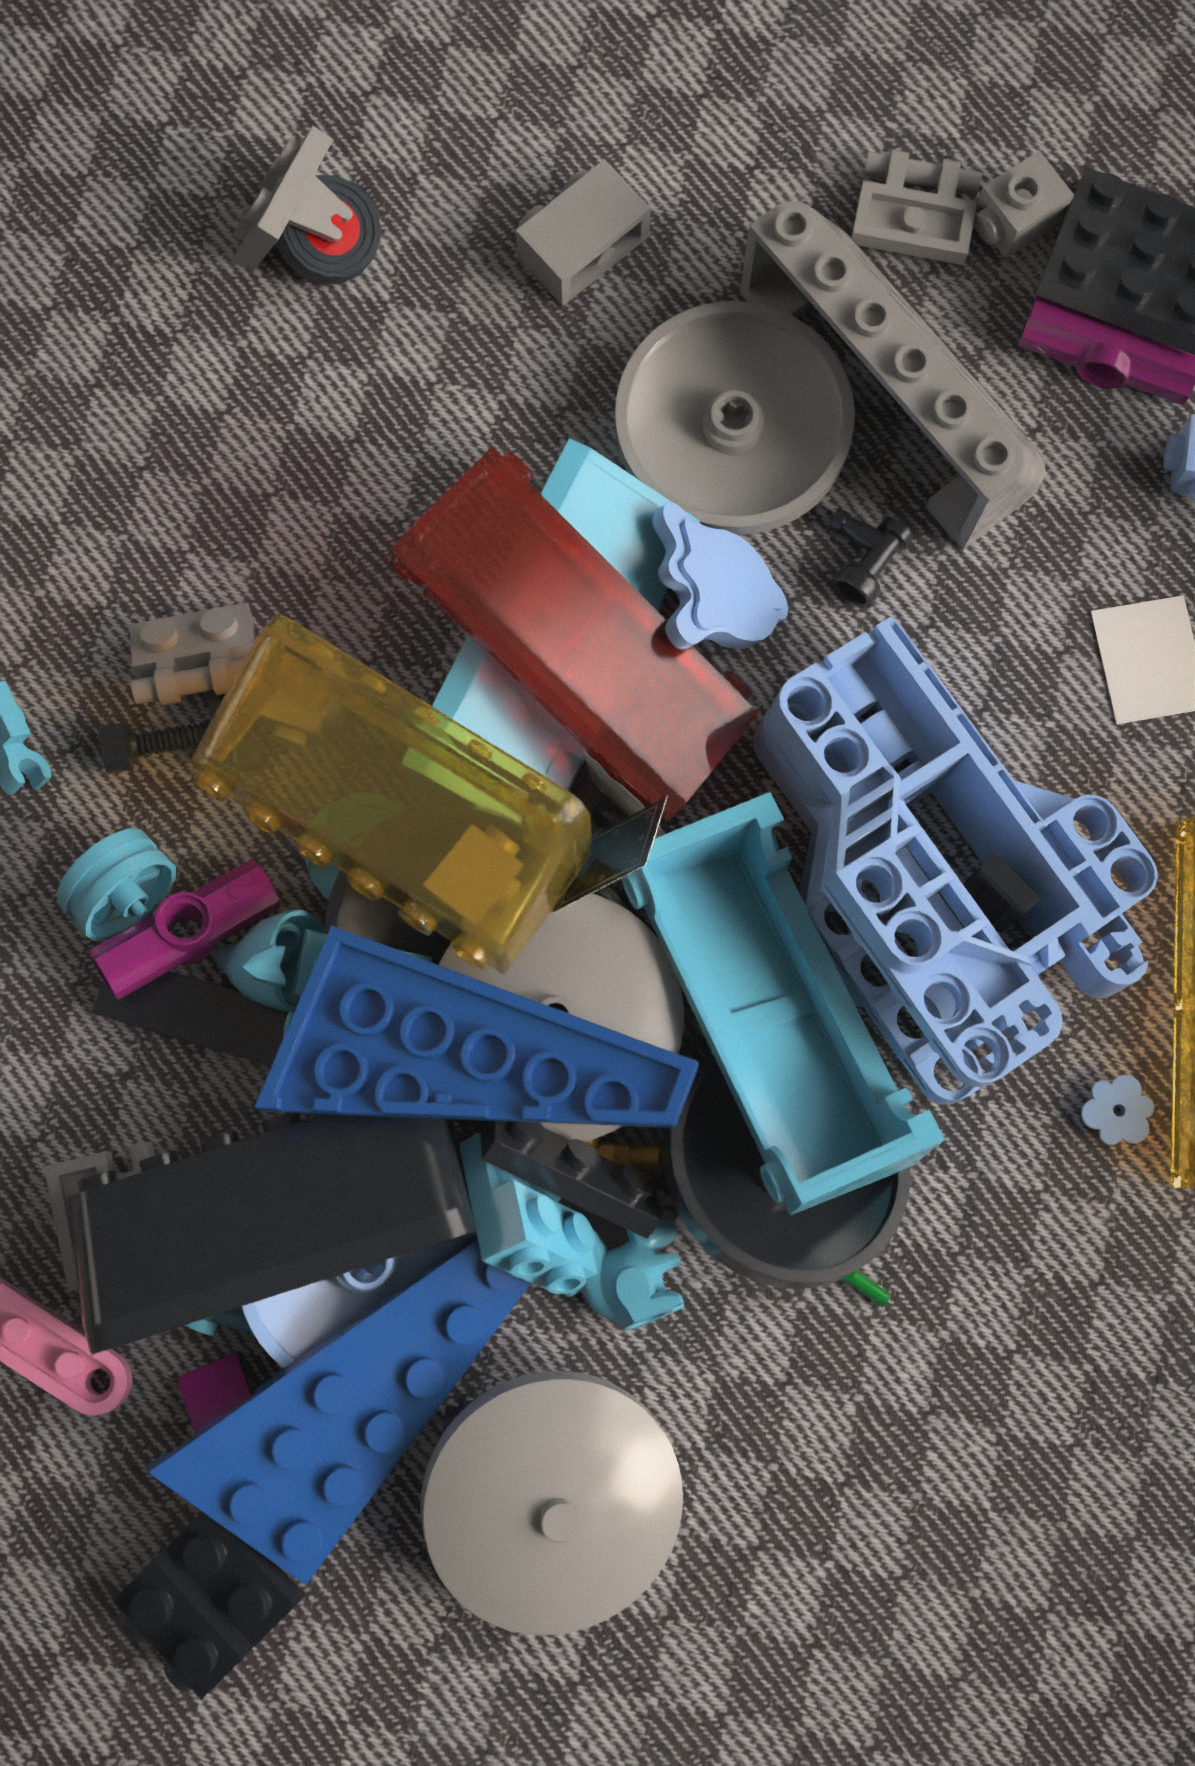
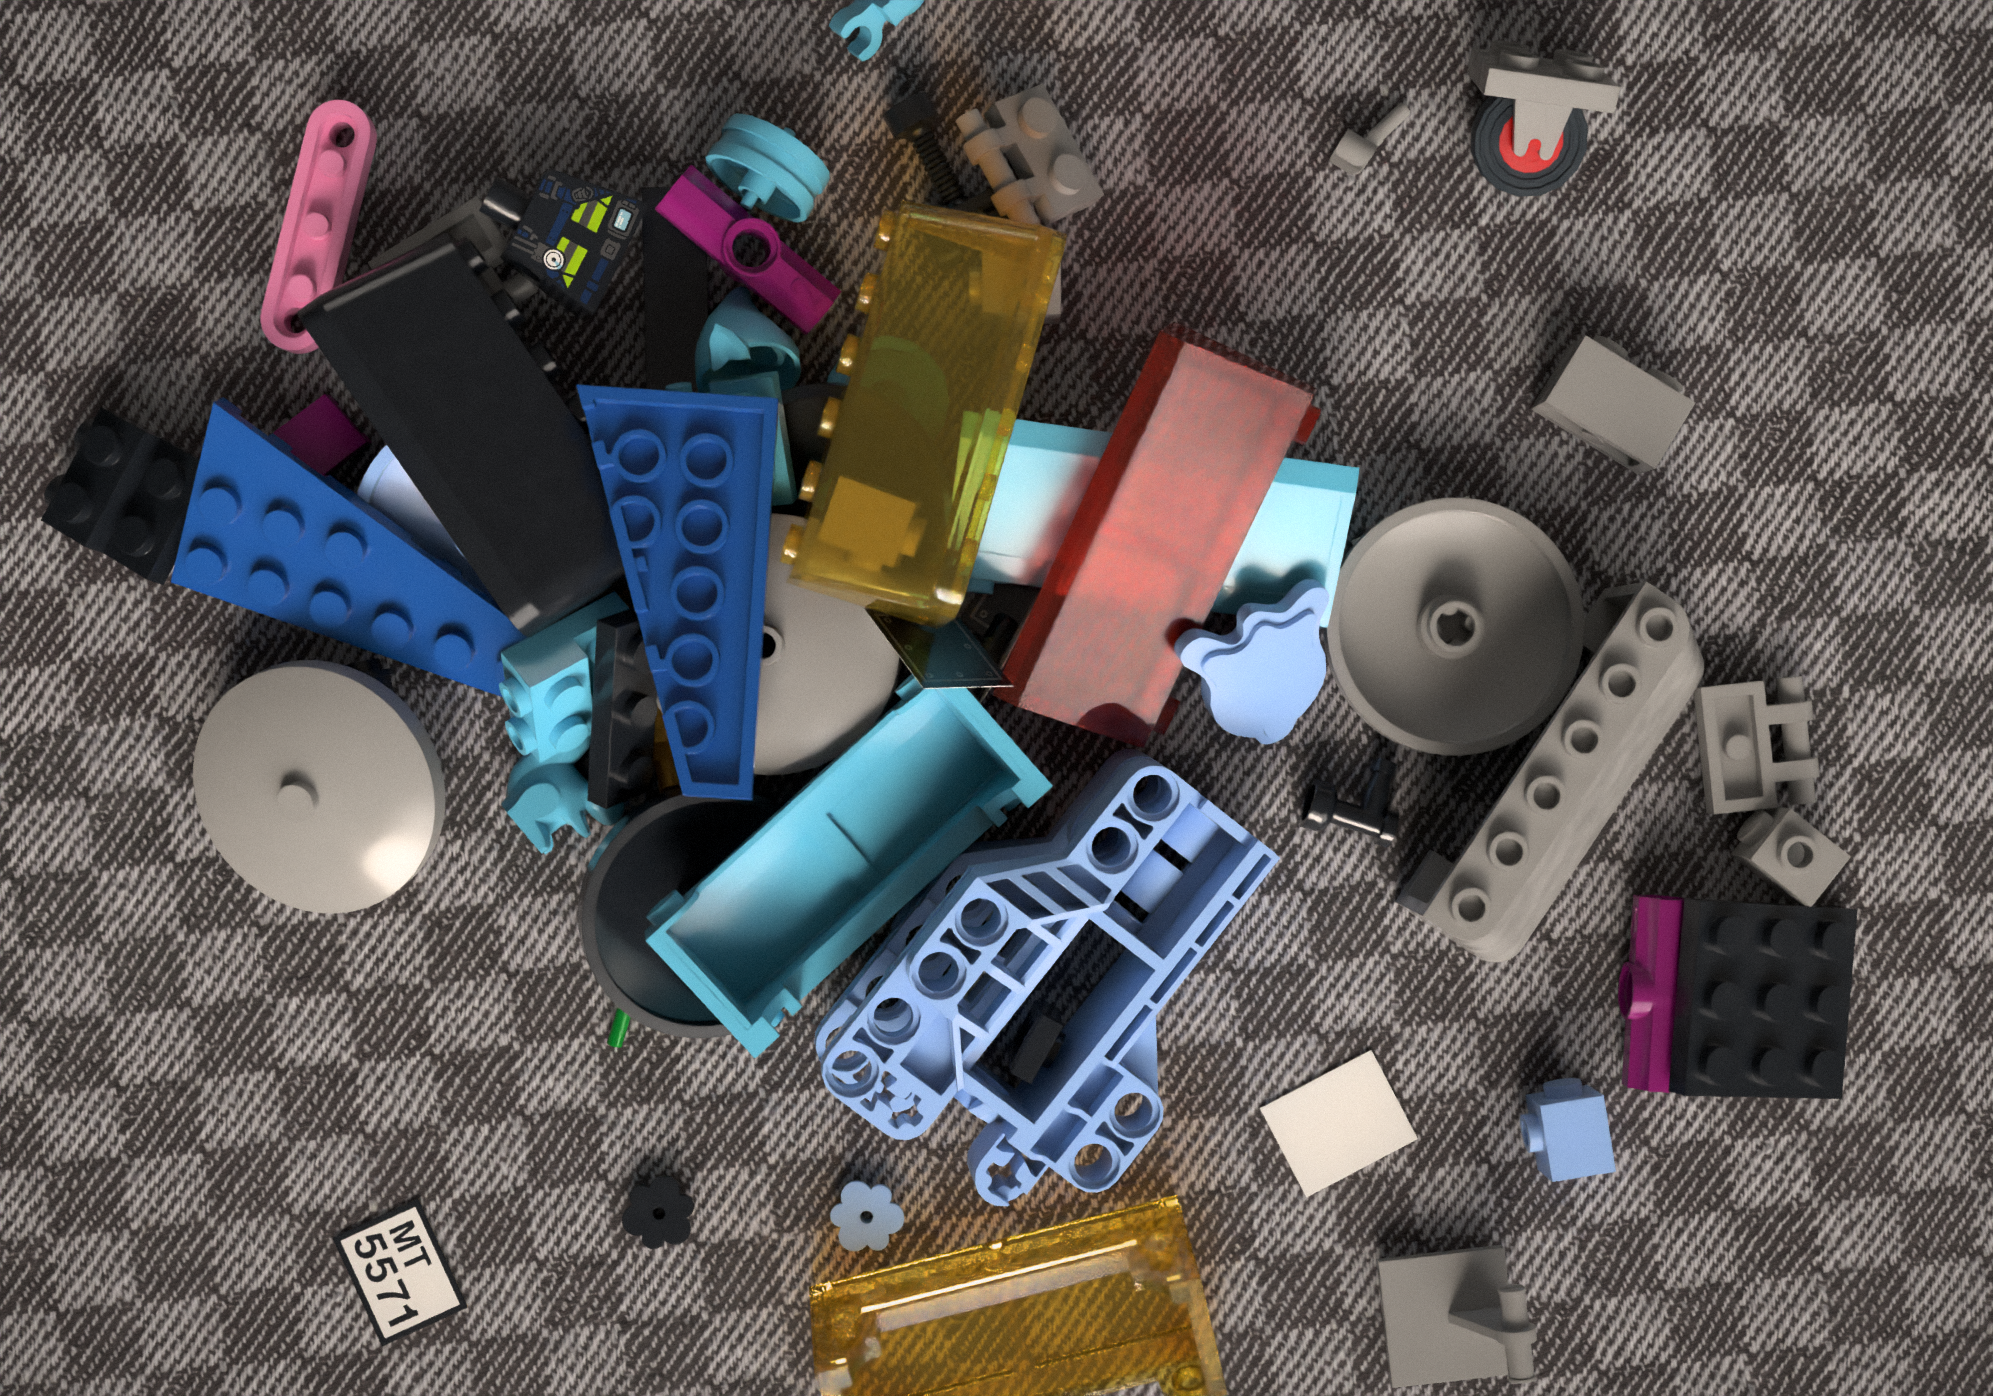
camera: 75 degrees right, 10 degrees up
(111, 1092) = (565, 235): none -> torso
(286, 380) = (1355, 151): none -> light grey hand
(1048, 1586) = (400, 1272): none -> white sticker
(1077, 1300) = (655, 1229): none -> black plant

